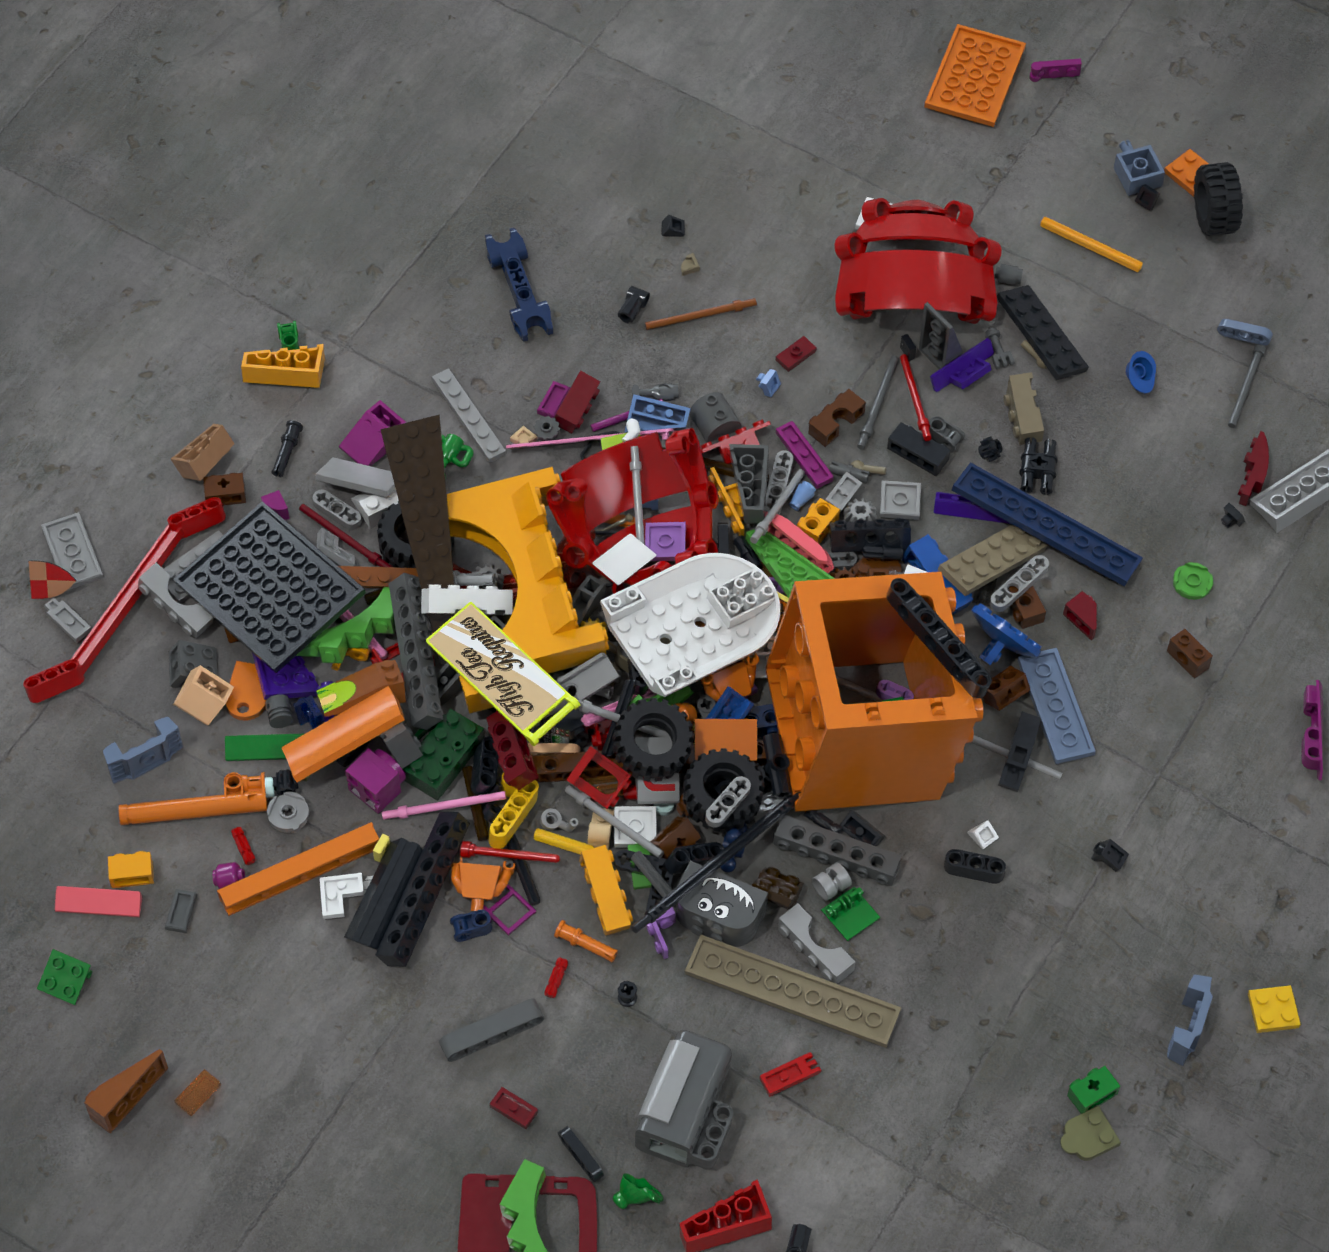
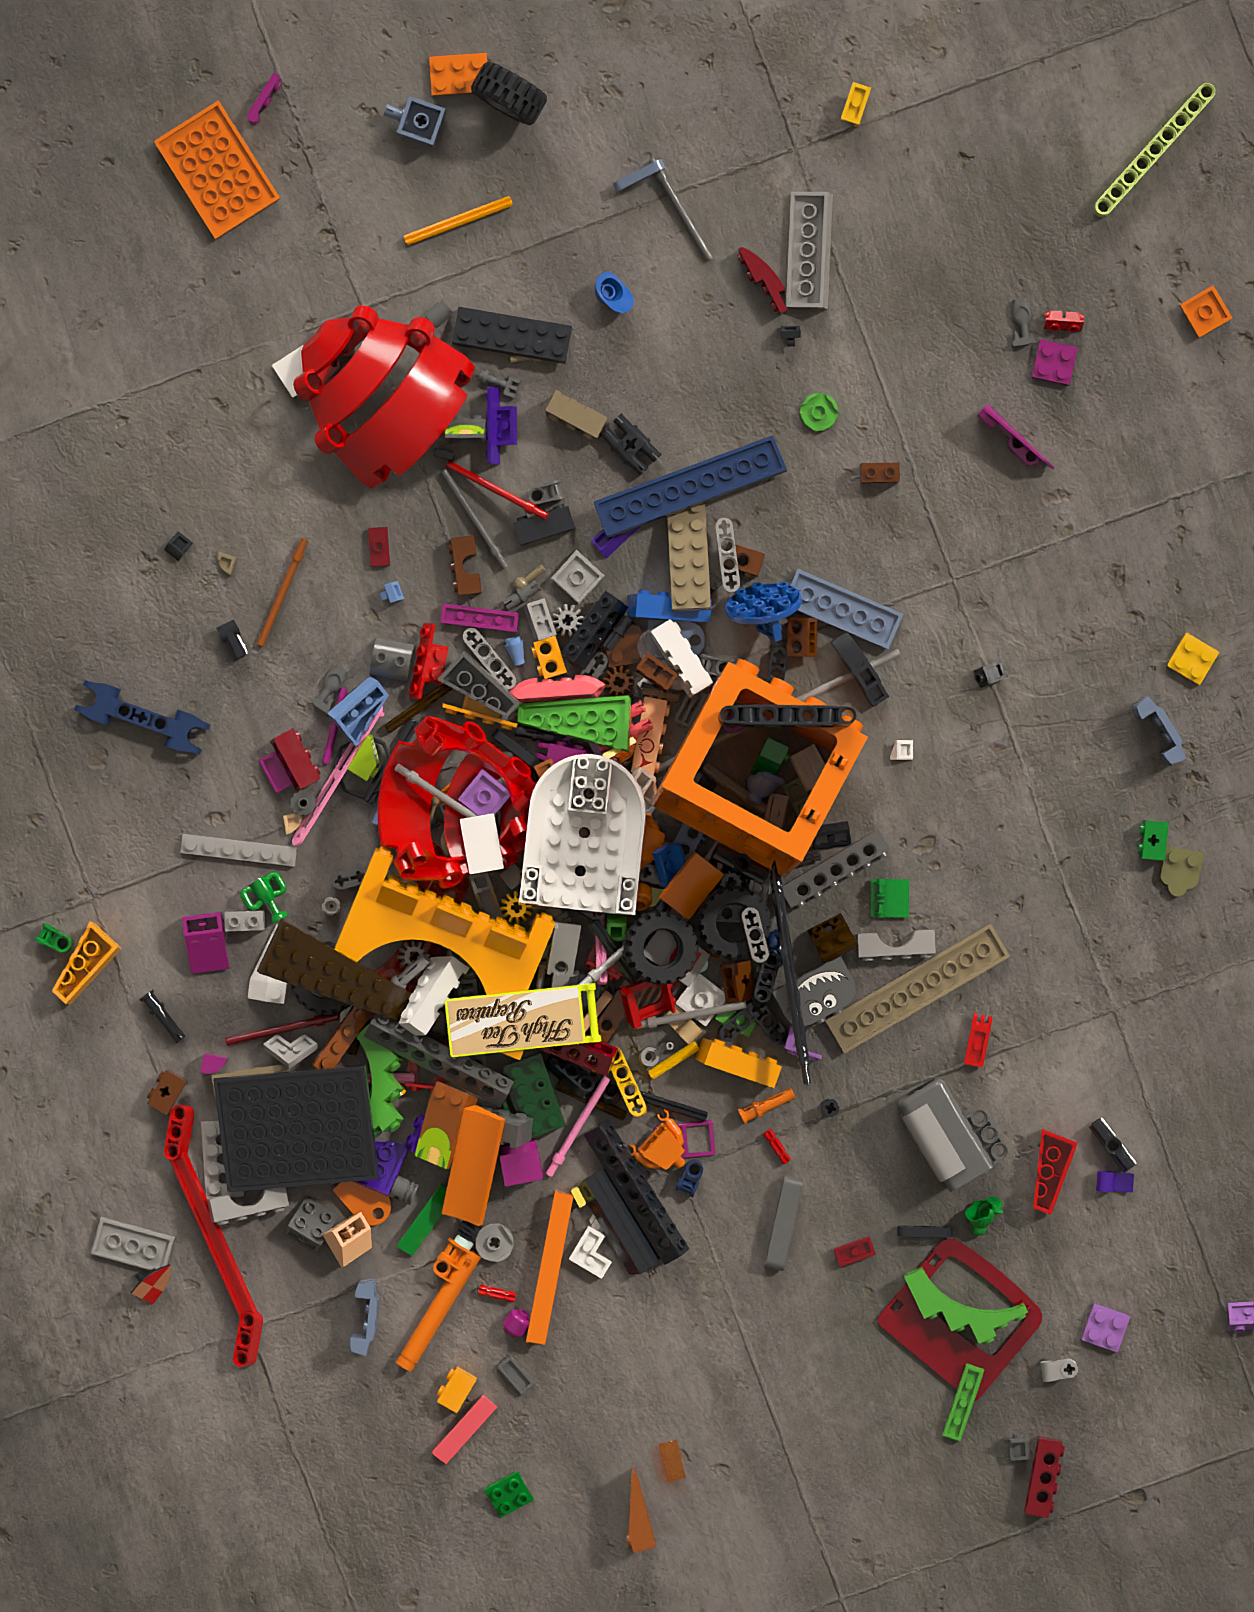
camera: 55 degrees left, 30 degrees up
(67, 619) = (196, 1291): light grey hinge -> none
(203, 453) = (123, 1087): medium nougat wedge -> none
(308, 711) = (433, 1171): clear blue bracket -> none
(340, 517) = (234, 1015): light grey beam -> none
(357, 477) = (235, 984): light grey tile -> none
(468, 849) = (627, 1134): red piece -> none
(633, 430) = (364, 742): white arm -> none
(651, 873) = (759, 1022): dark grey axle -> none
(762, 527) = (530, 713): light grey bar -> none
(834, 879) = (857, 901): light grey wheel -> none
(984, 862) = (933, 777): black beam -> none
(990, 448) = (588, 470): black gear -> none
(1082, 613) = (784, 522): dark red slope -> none
(1147, 197) = (450, 136): black tile -> none

